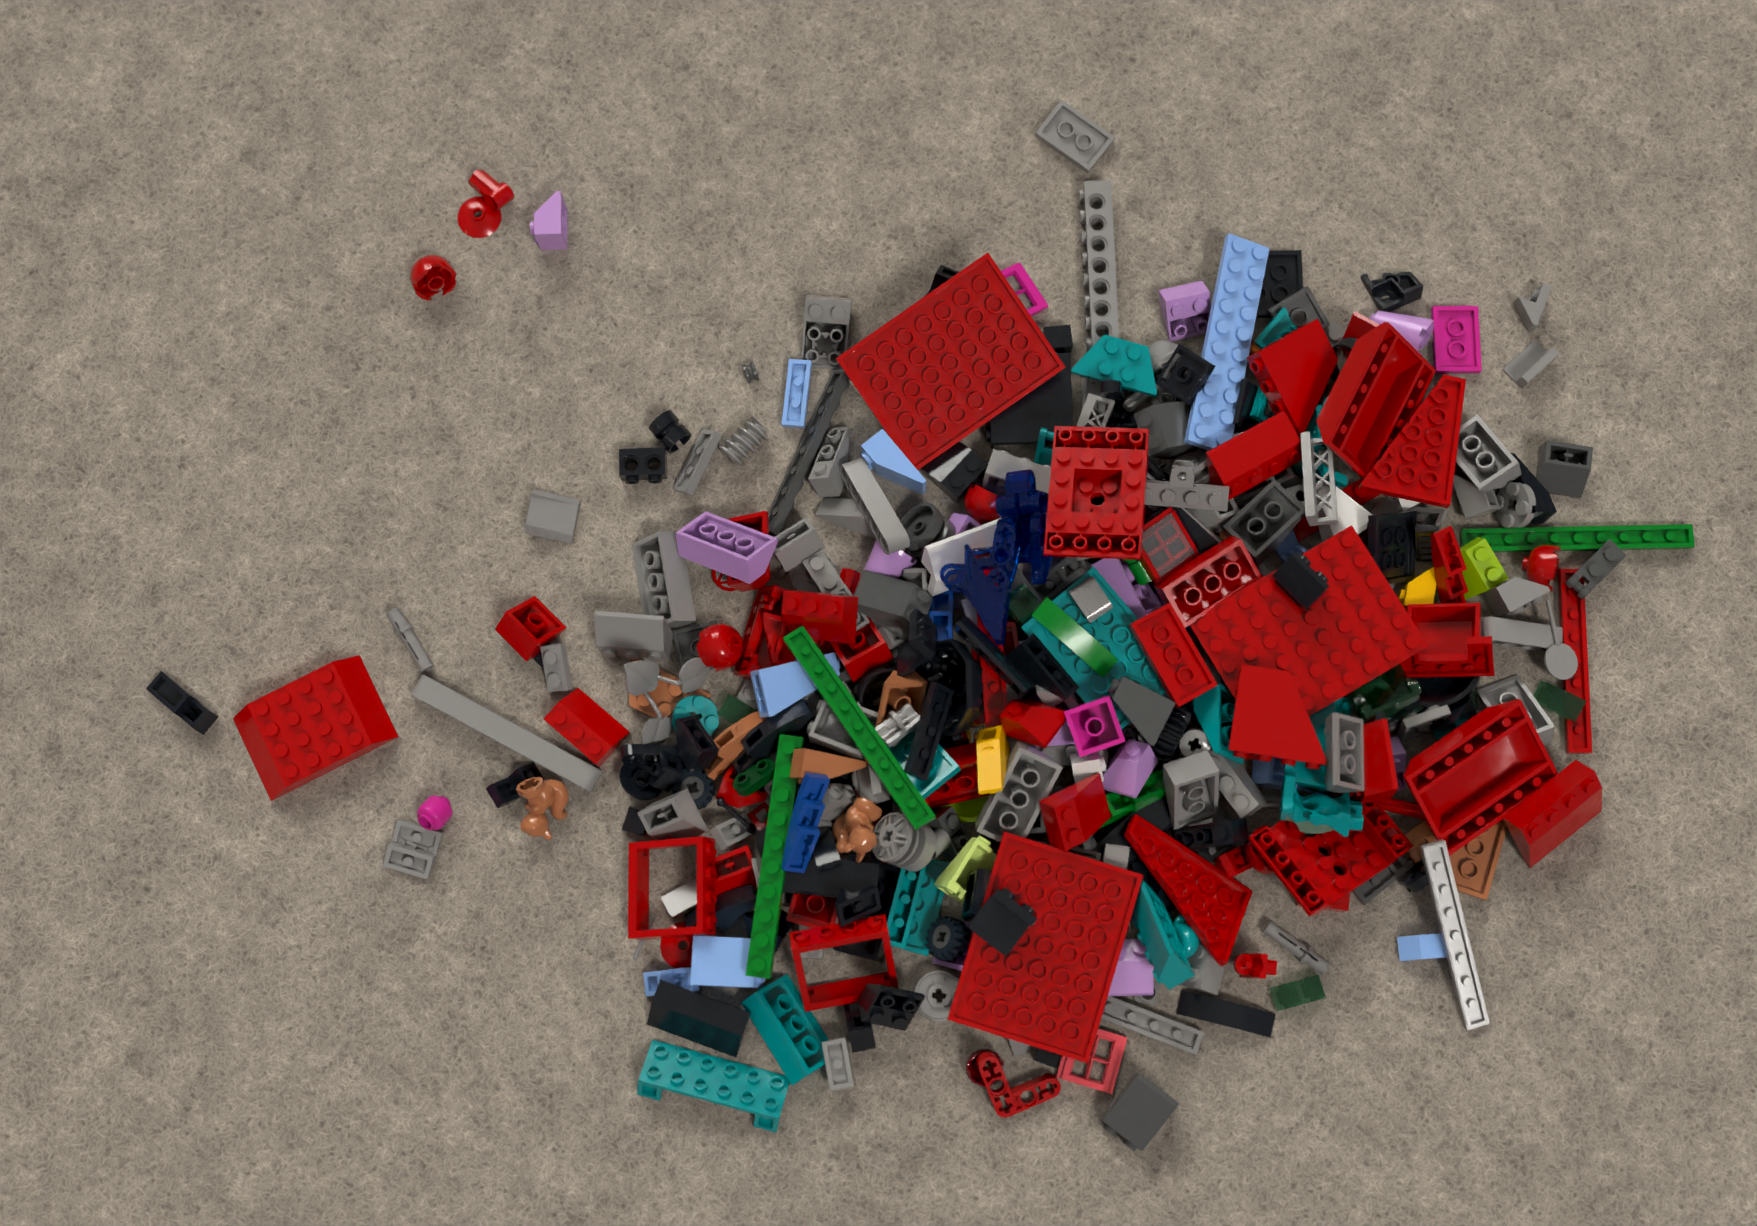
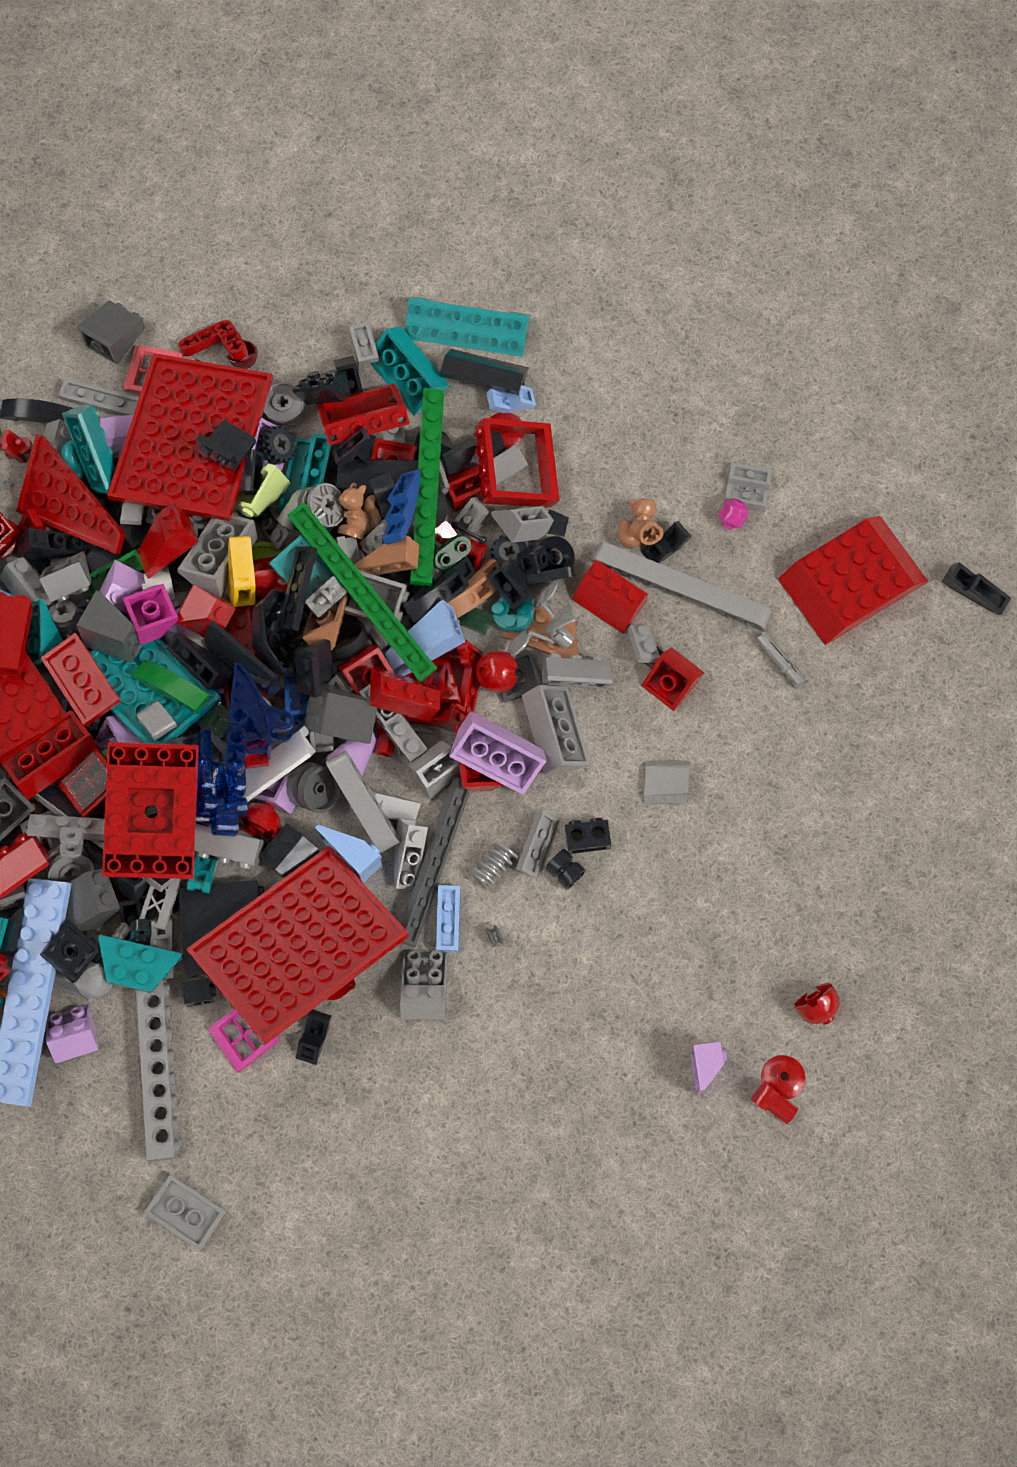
camera: 175 degrees right, 5 degrees down
(721, 962) = (465, 408): light blue slope -> none

